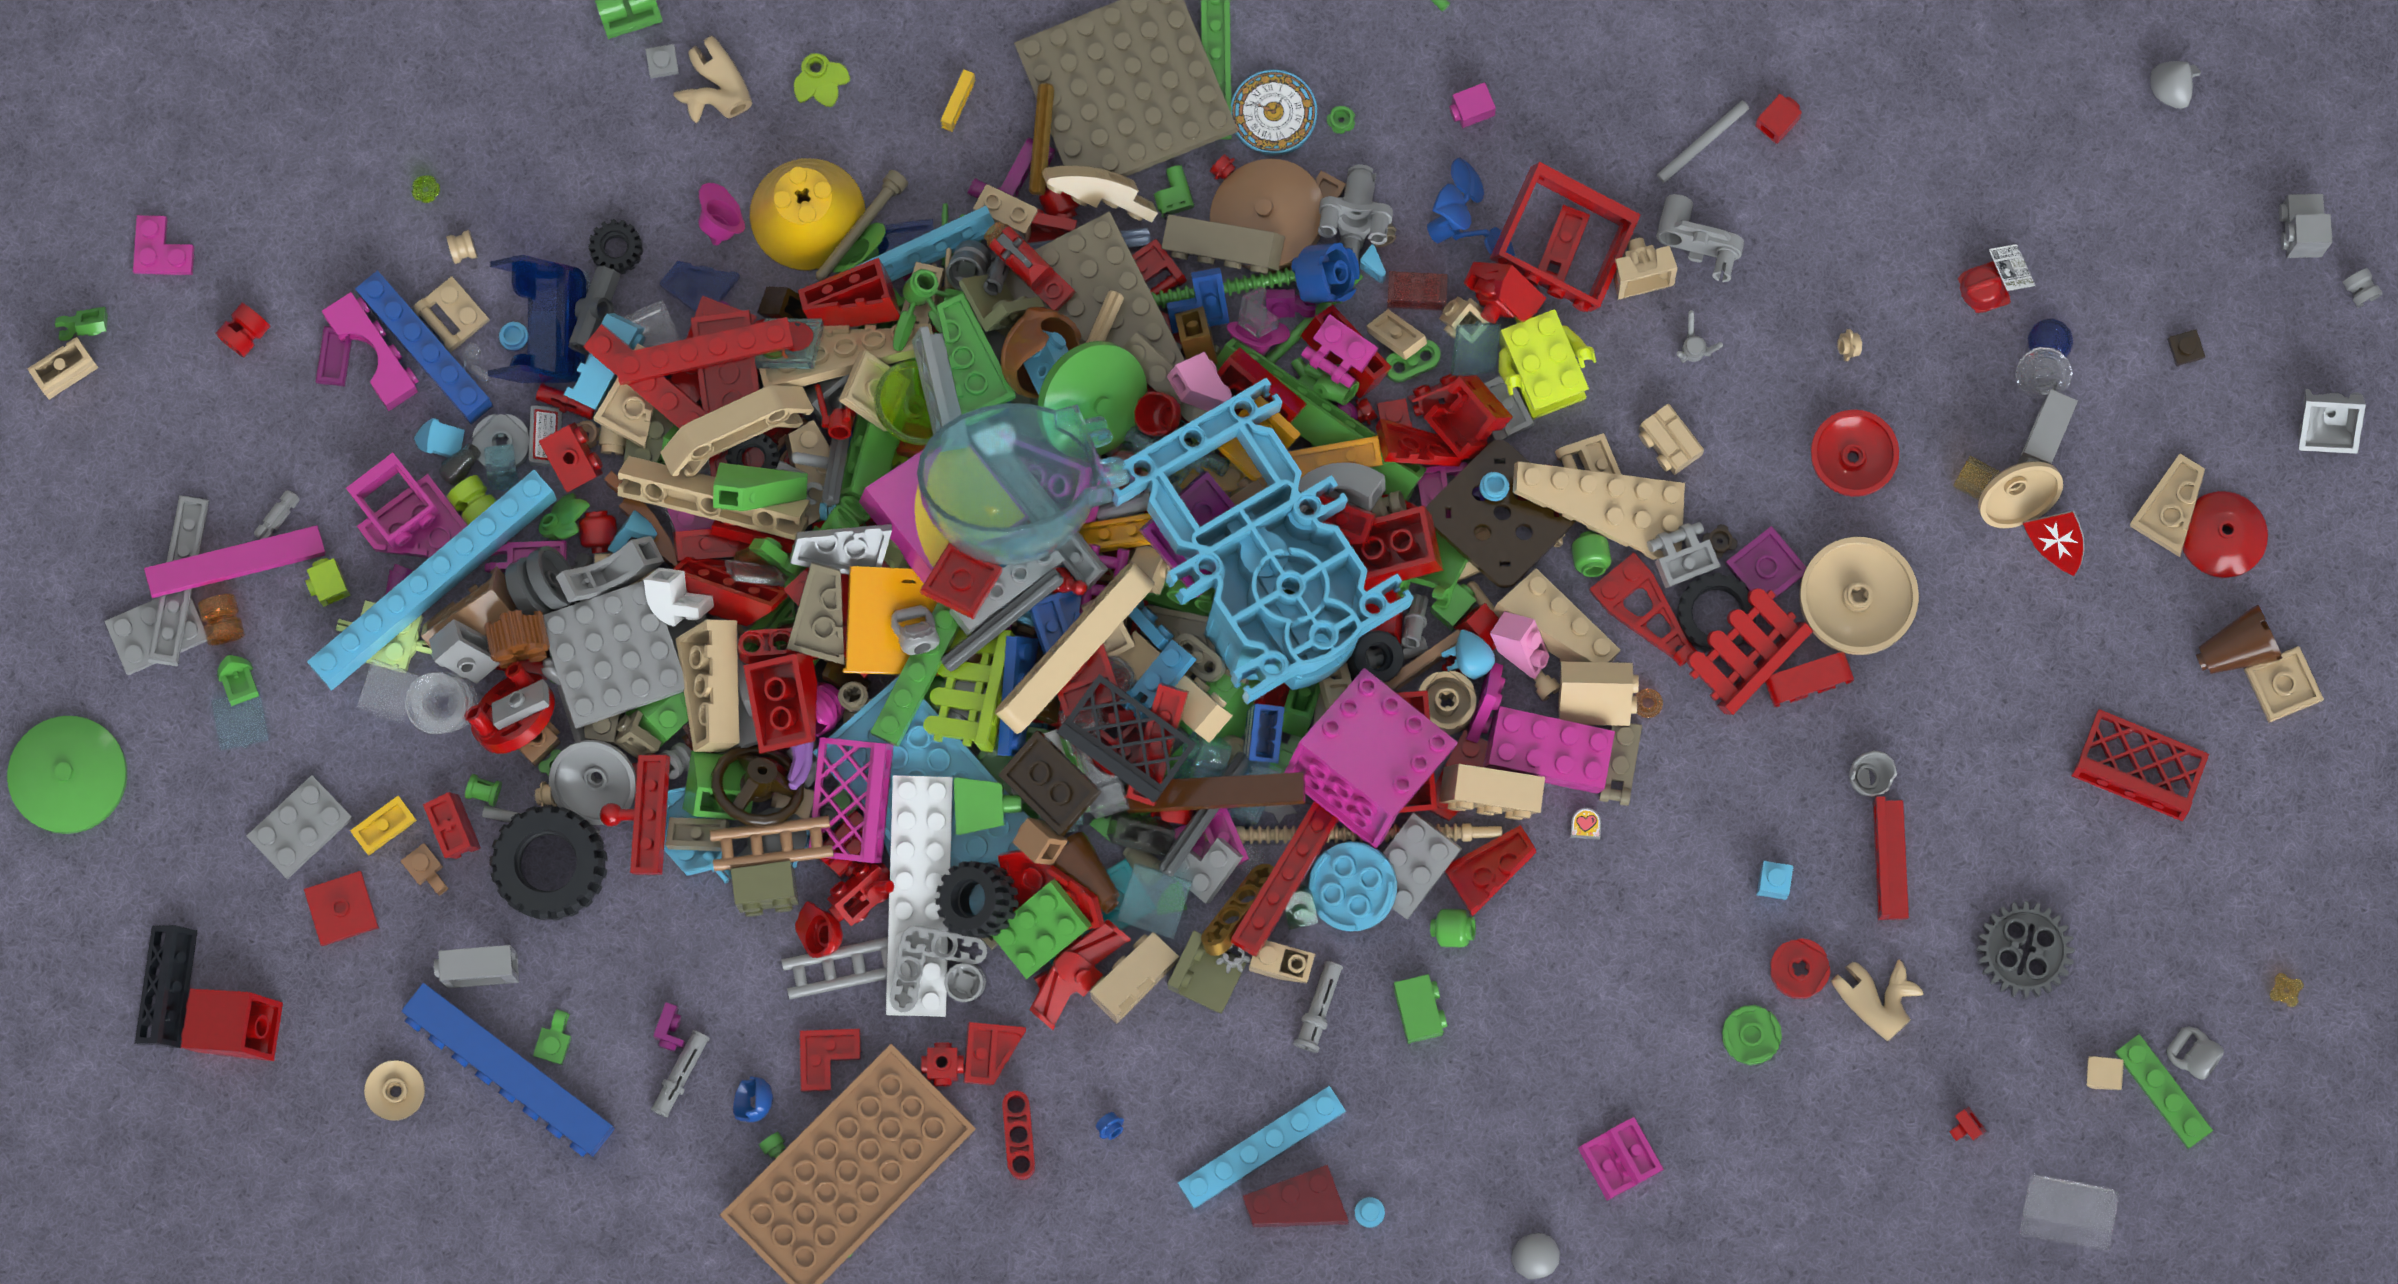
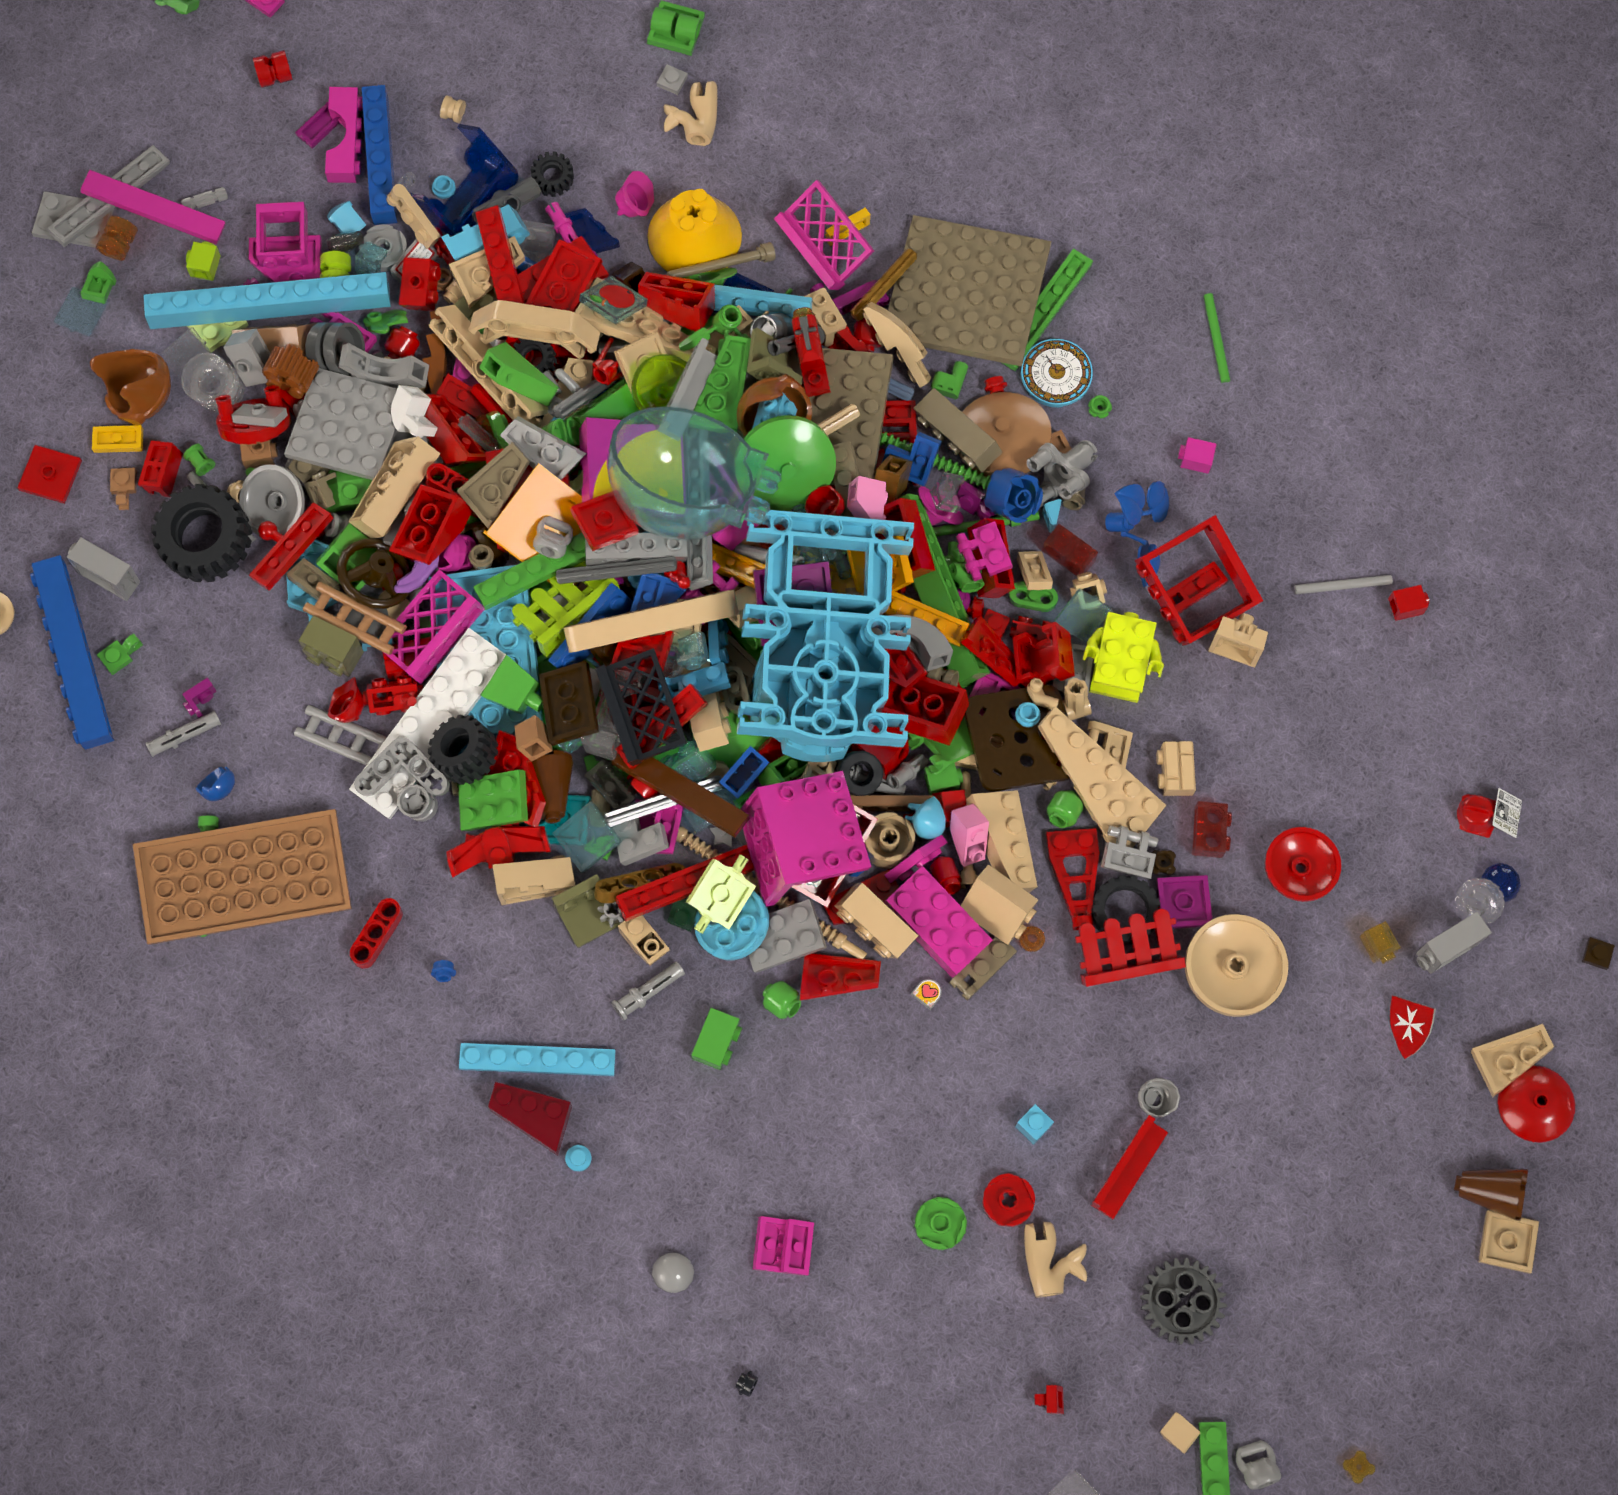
camera: 30 degrees right, 5 degrees down
(62, 368) = (141, 17): tan brick -> none
(299, 827) = (64, 404): light grey plate -> none
(364, 758) = (135, 383): none -> dark orange piece
(425, 181) = (455, 54): clear neon green plate -> none
(457, 307) = (421, 147): tan plate -> none
(515, 390) = (413, 215): none -> tan plate
(636, 527) = (425, 353): medium azure tile -> none
(670, 295) = (561, 223): none -> dark pink pin
(703, 351) = (550, 264): red plate -> none
(820, 84) = (766, 160): lime plate -> none
(821, 1048) = (288, 782): red plate -> none
(944, 151) = (807, 246): none -> dark pink fence
(947, 1074) = (367, 854): red brick -> none
(988, 1051) = (400, 862): red wing -> none
(1134, 649) = (693, 651): none -> clear light blue bracket
(1327, 867) = (720, 893): none -> yellowish green plate
(1491, 461) = (1038, 696): none -> tan arm
(1503, 291) = (1128, 587): red brick -> none
(1524, 697) = (946, 874): none -> red brick
(1529, 439) = (1076, 699): none -> tan piece
(1694, 346) = (1239, 716): light grey plant -> none
(1700, 240) = (1293, 645): light grey piece -> none
(1736, 481) = (1206, 829): none -> clear red brick
(1808, 678) = (1160, 999): red beam -> none
(1849, 344) = (1351, 788): tan plate -> none
(2020, 494) = (1404, 972): tan dish -> none
(2128, 785) = (1347, 1242): red fence -> none

